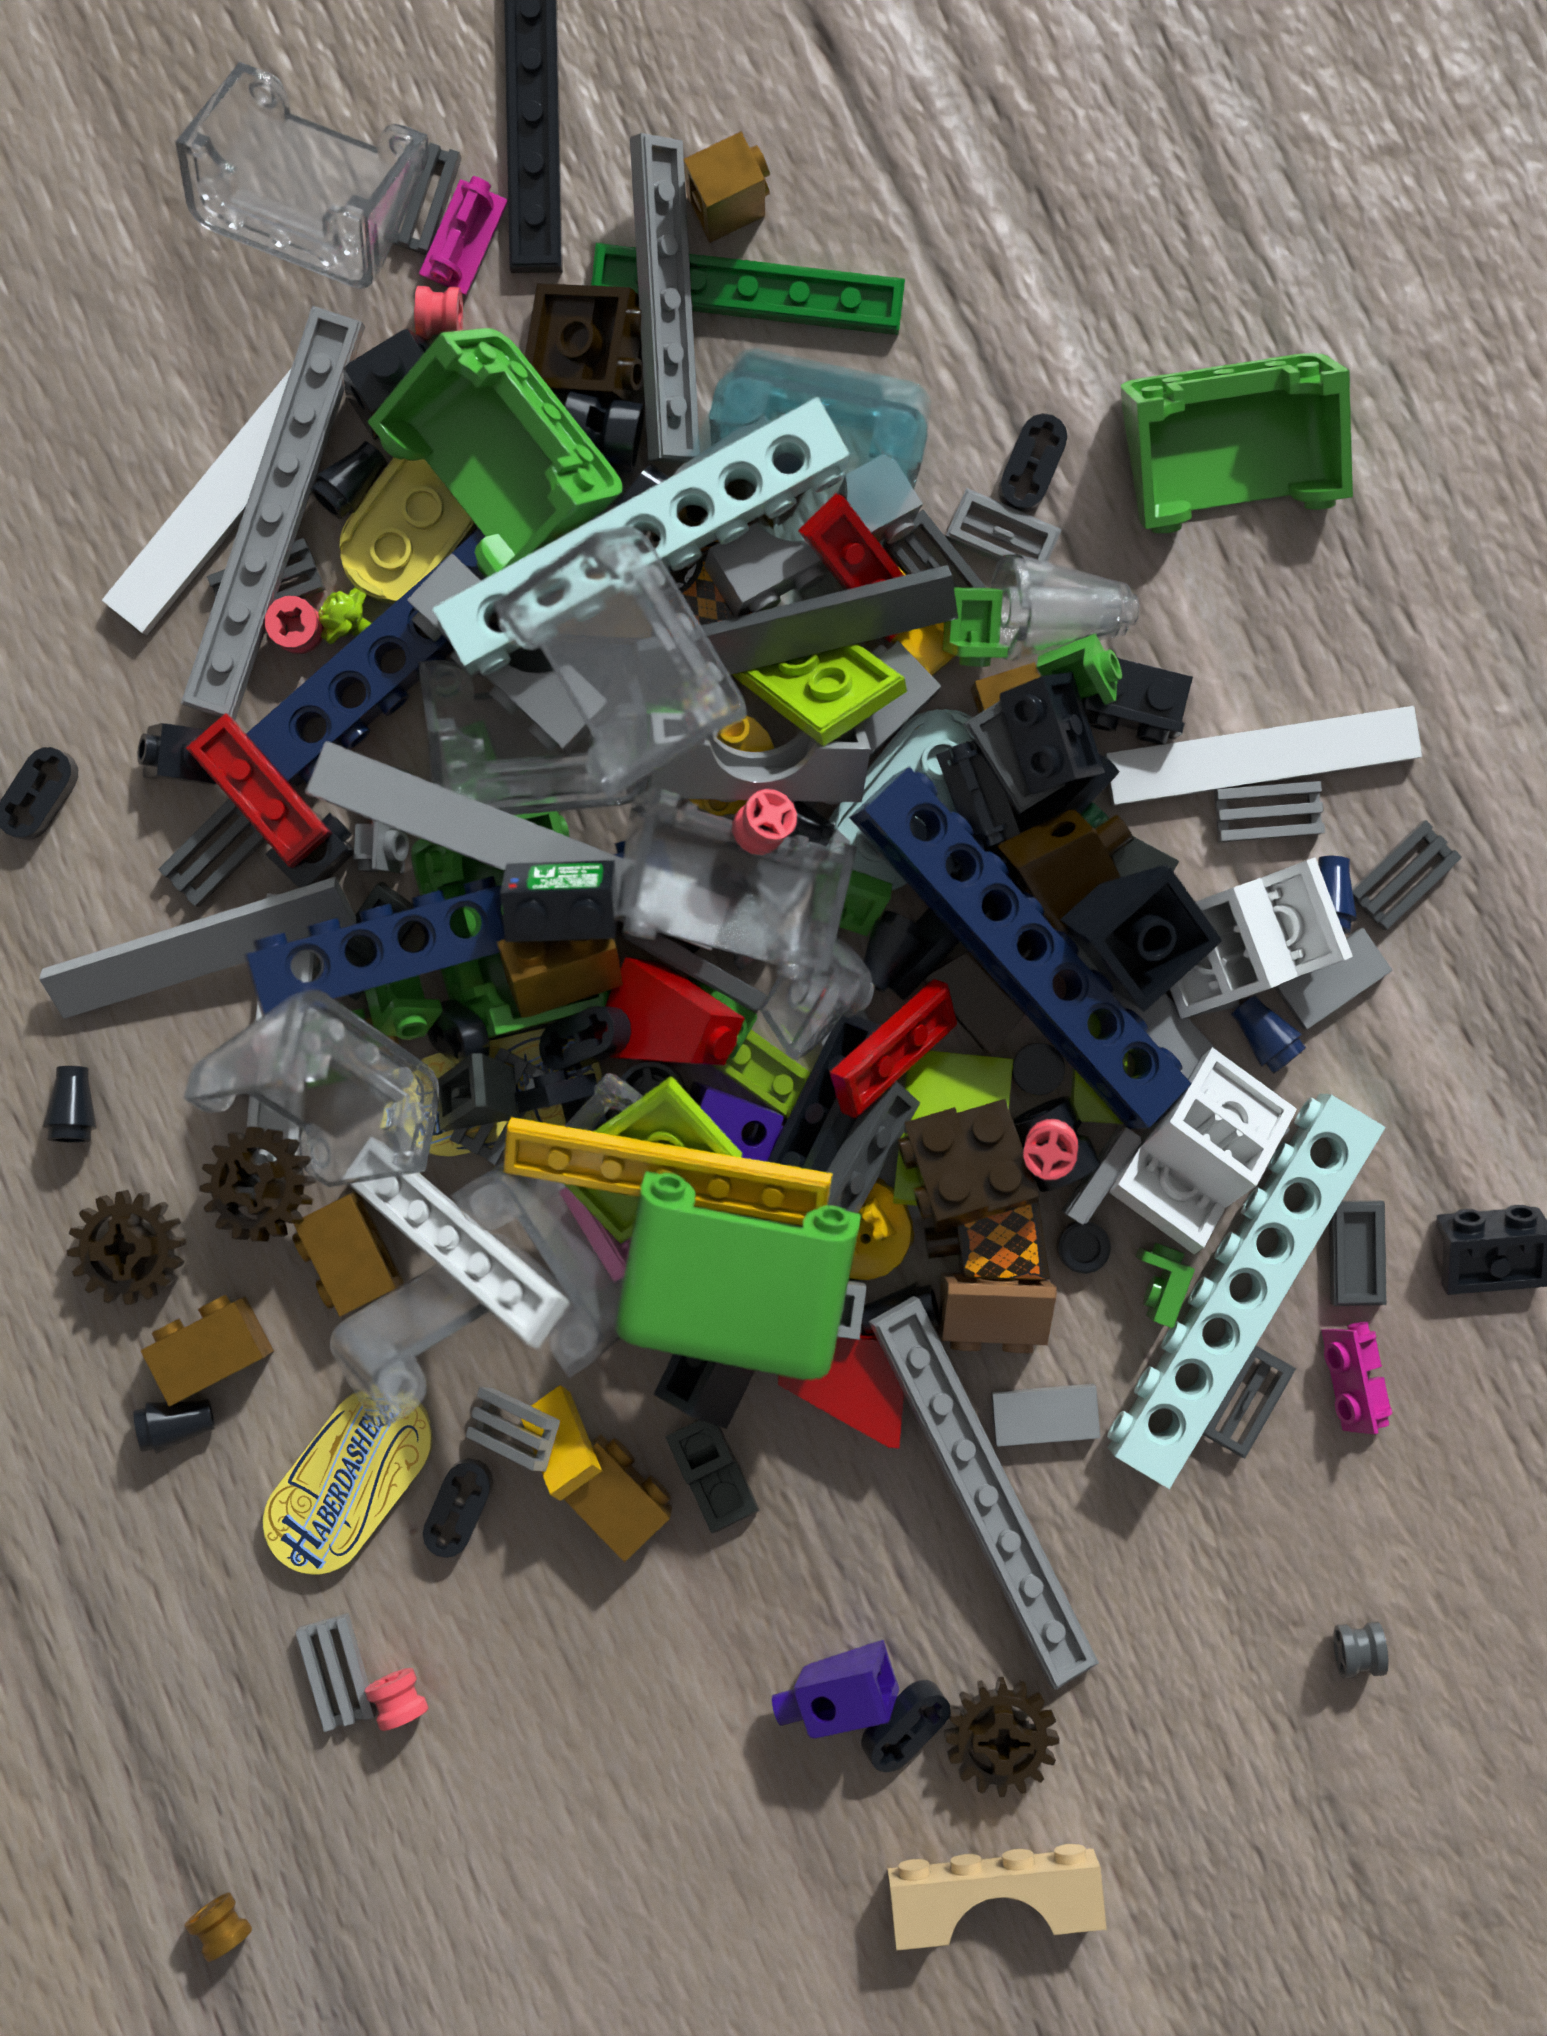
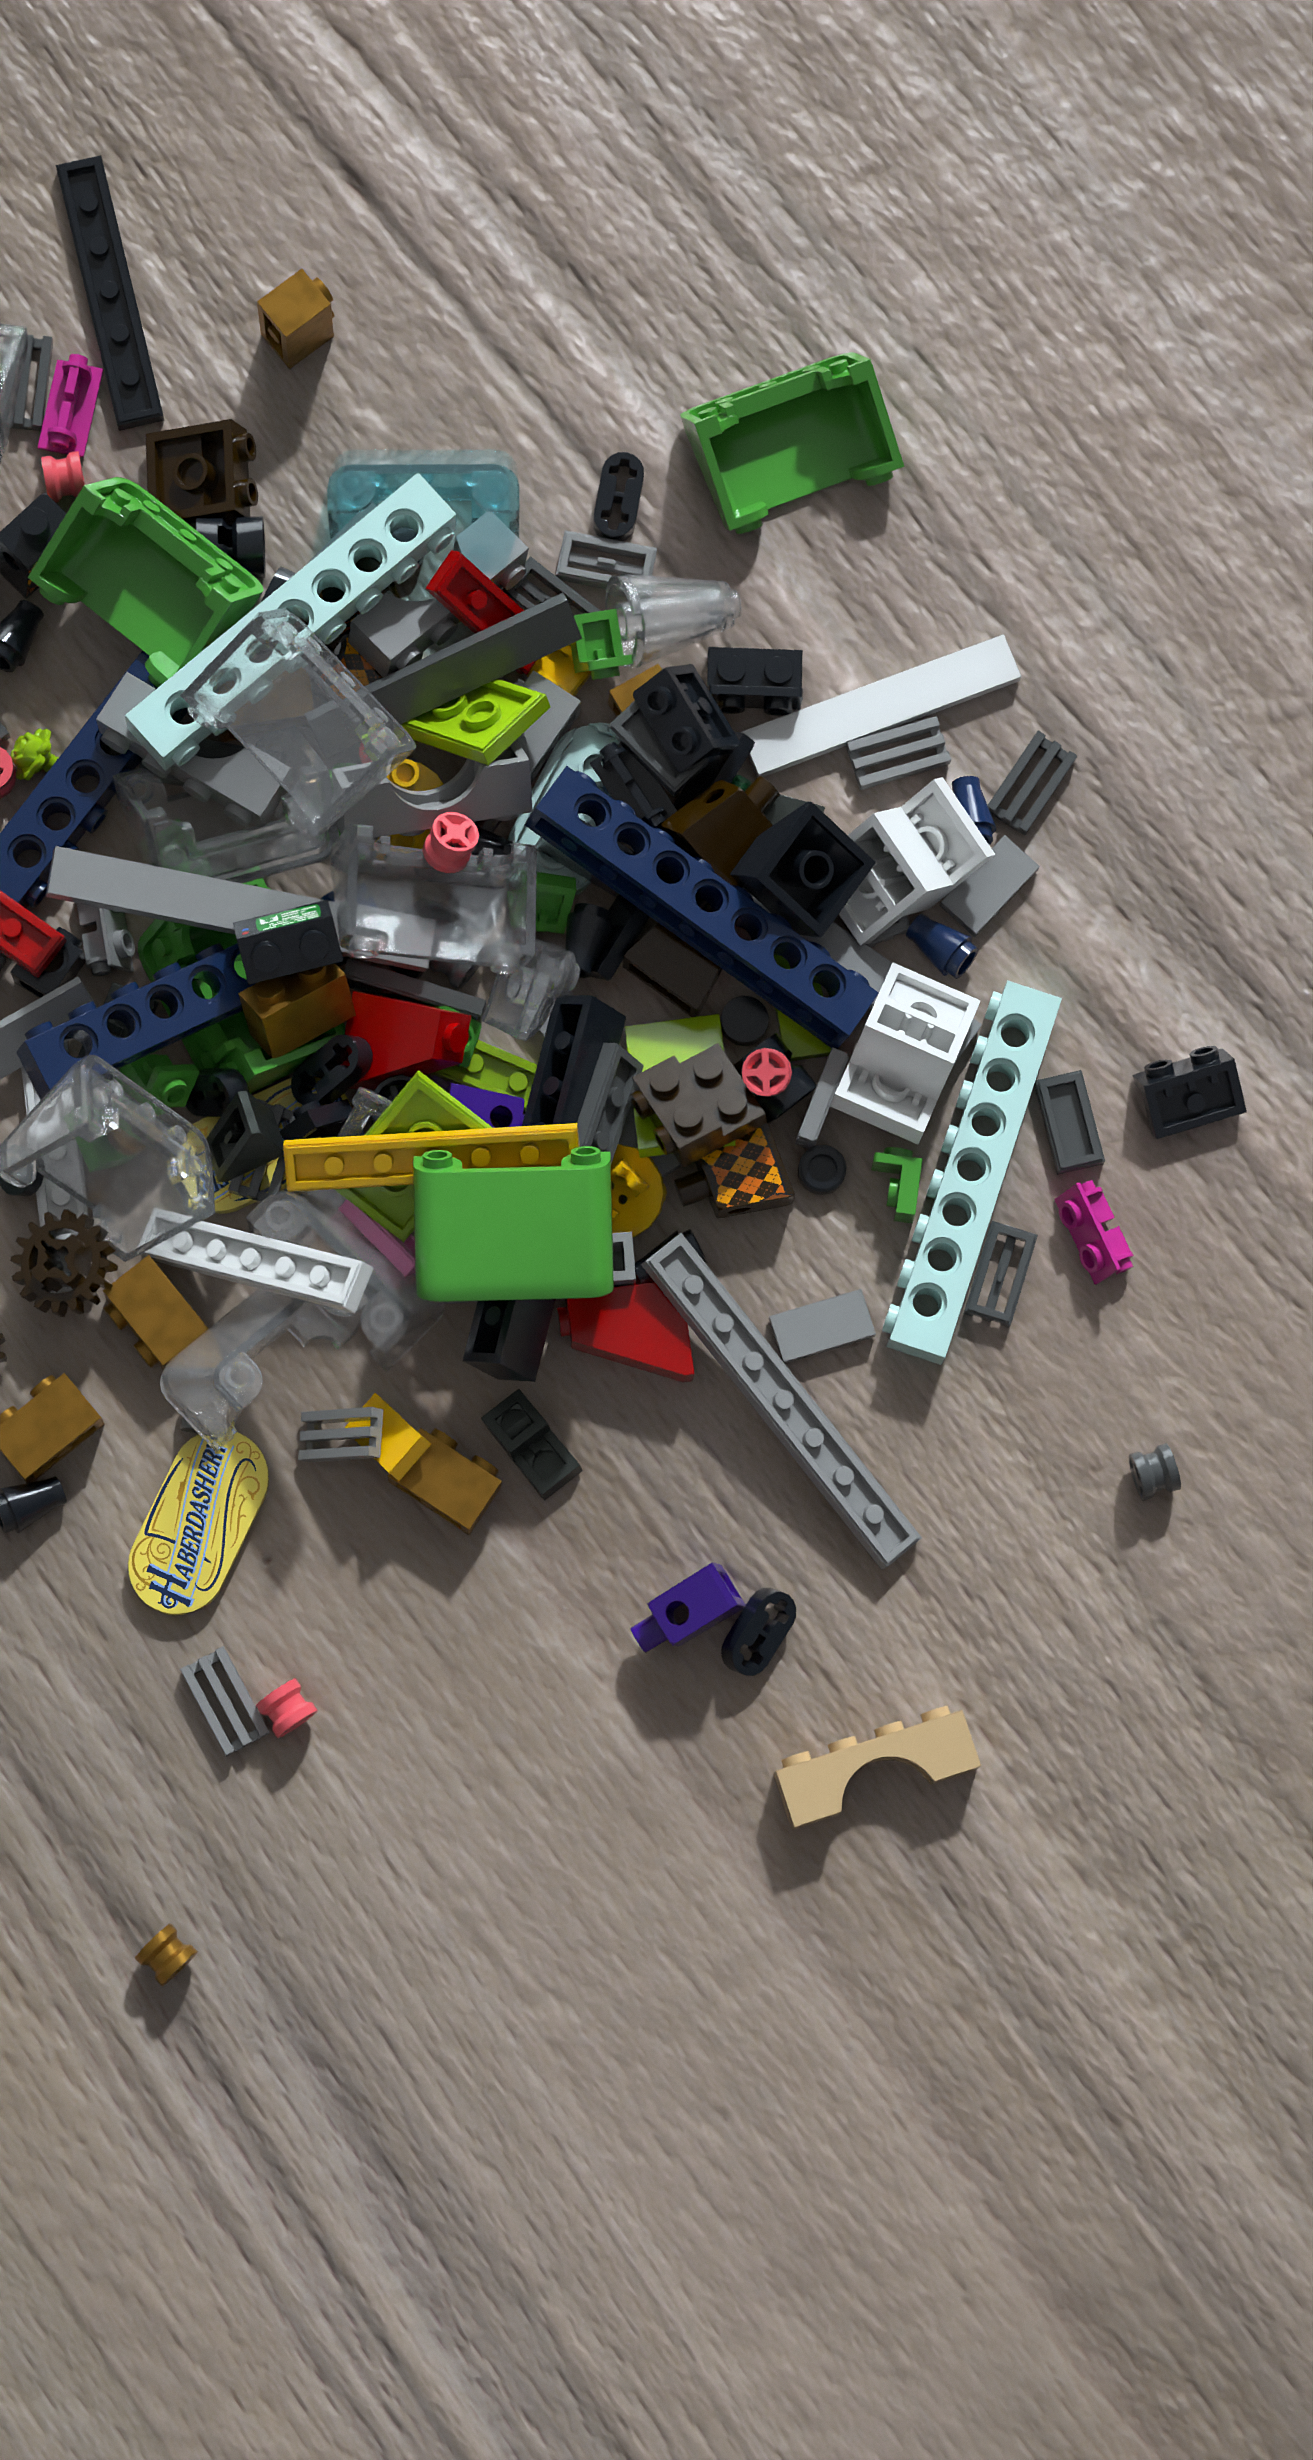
camera: 25 degrees left, 10 degrees down
(401, 530) = (70, 669): light yellow tile -> none
(469, 1512) = (293, 1523): black beam -> none
(665, 298) = (263, 424): light grey tile -> none
(772, 290) = (338, 399): green tile -> none
(893, 1048) = (608, 1014): red tile -> none
(995, 1312) = (753, 1235): medium nougat slope -> none
(1022, 1737) = (842, 1600): dark brown gear -> none
(1091, 665) = (709, 655): bright green bracket -> none

